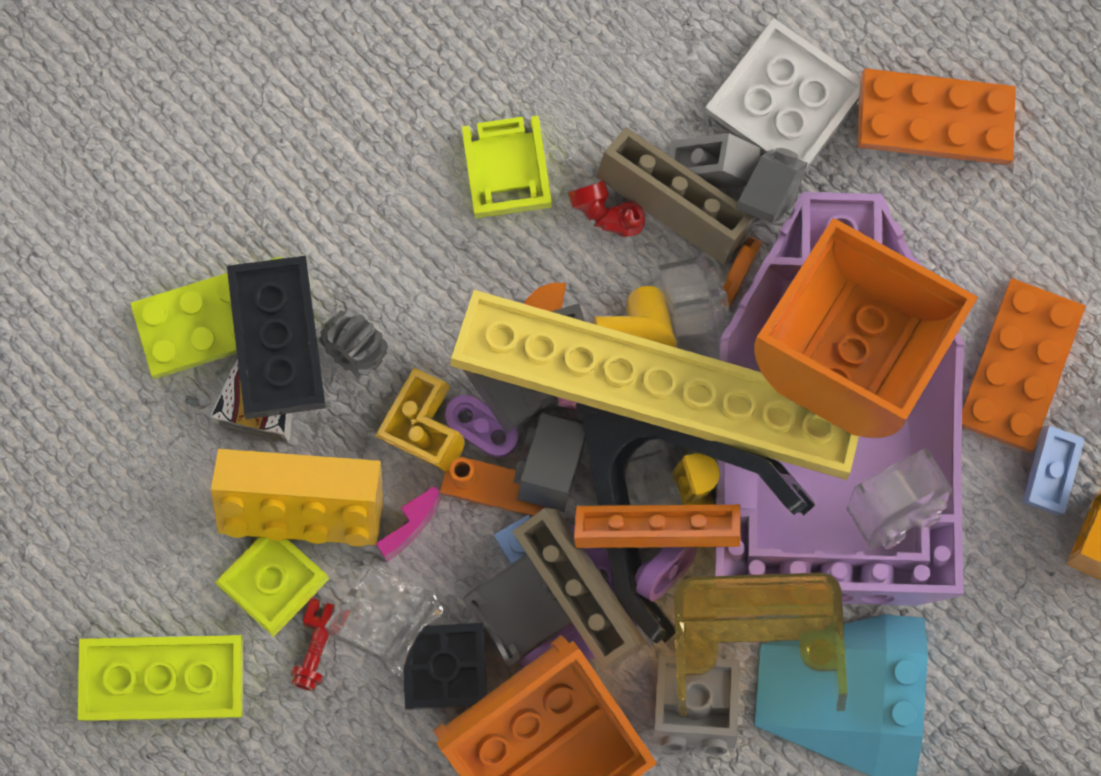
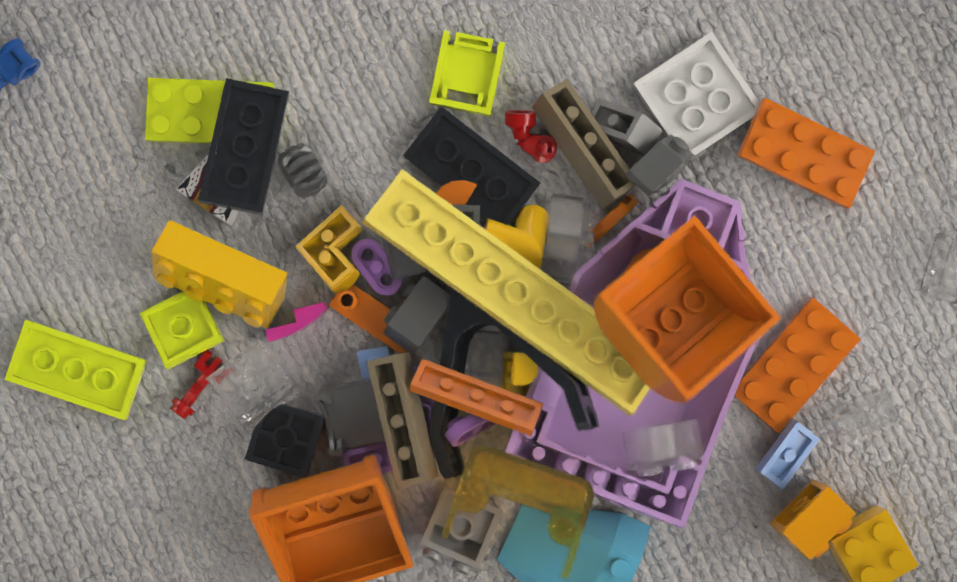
camera: 15 degrees right, 10 degrees up
(523, 257) = (454, 152): none -> black plate

